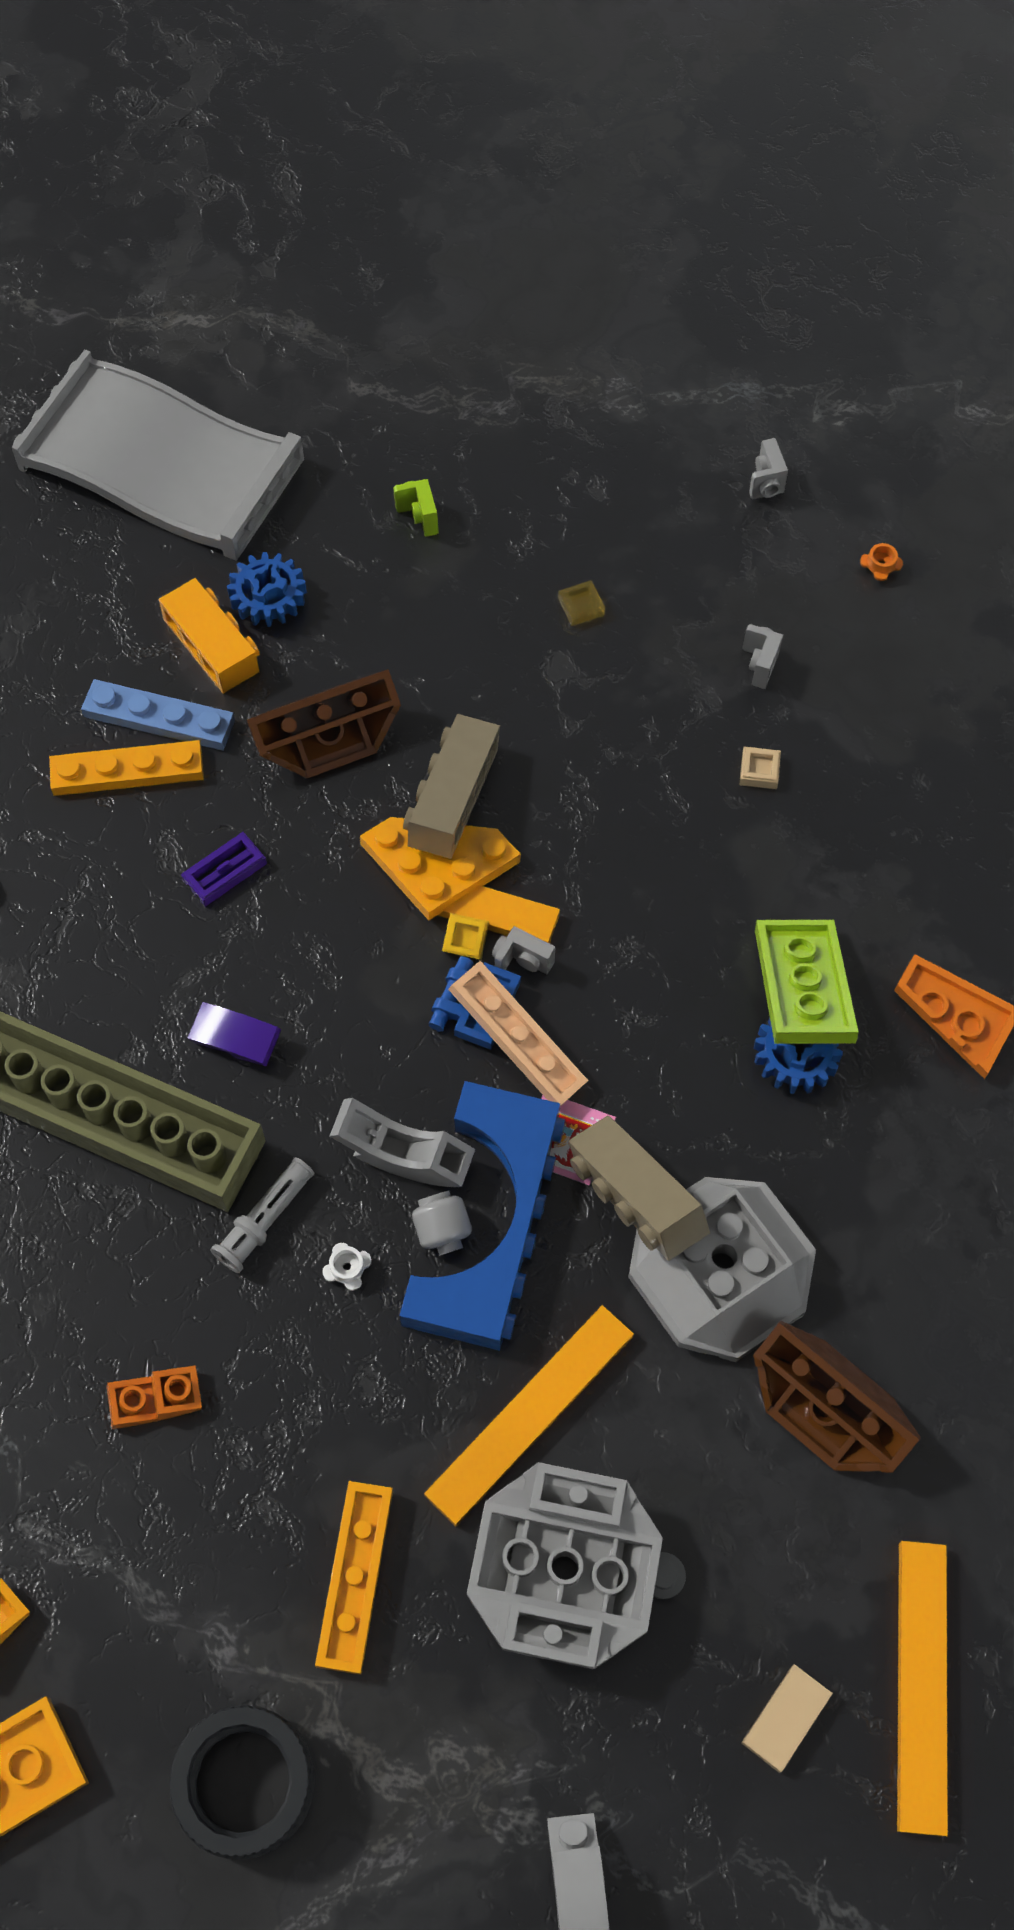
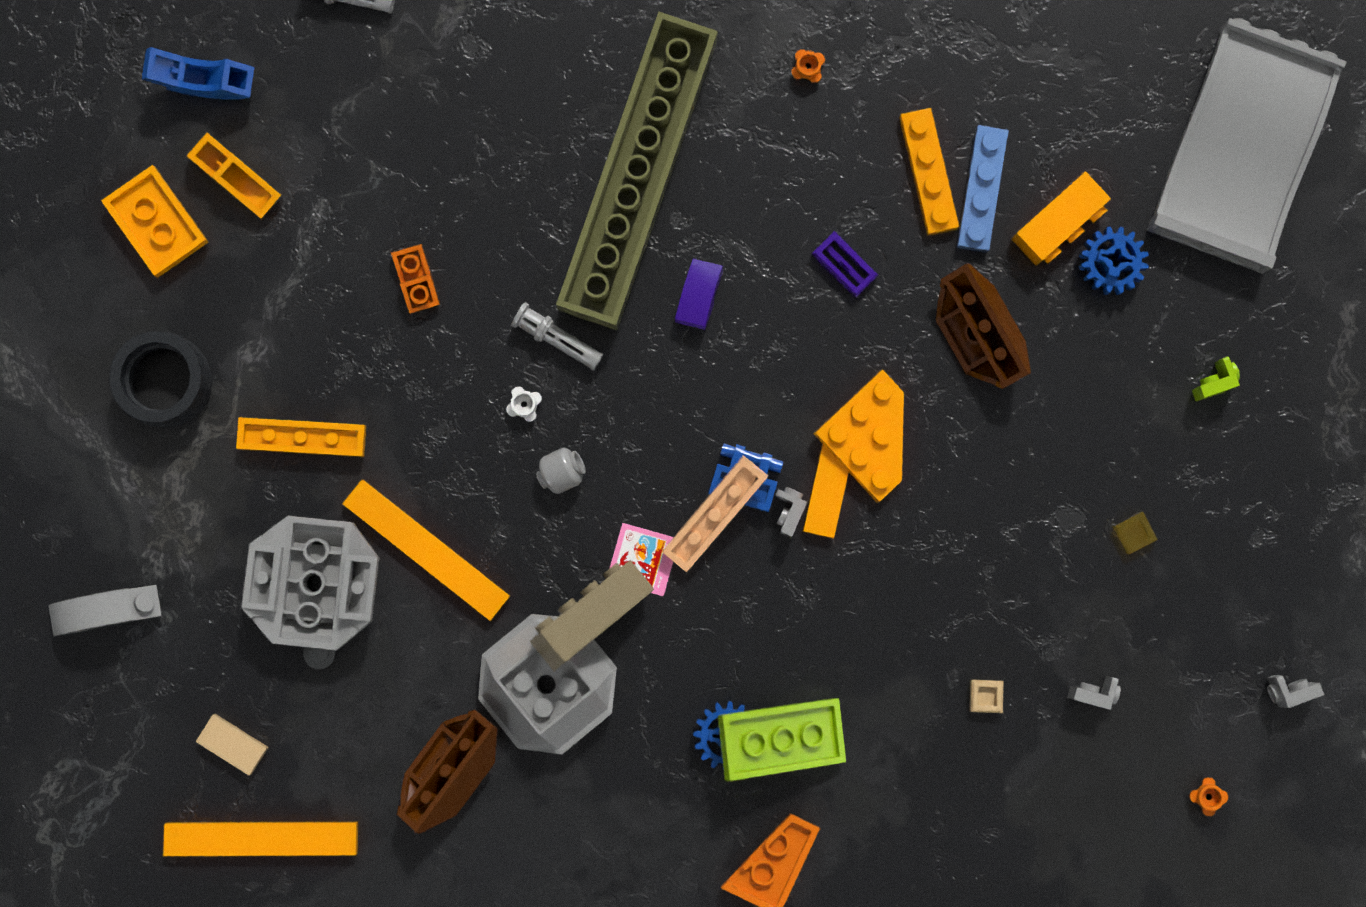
camera: 80 degrees right, 20 degrees up
(402, 1150) = (615, 434): light grey arch -> none
(452, 786) = (932, 440): dark tan brick -> none
(465, 936) = (802, 464): yellow tile -> none
(478, 1301) = (502, 505): blue arch -> none

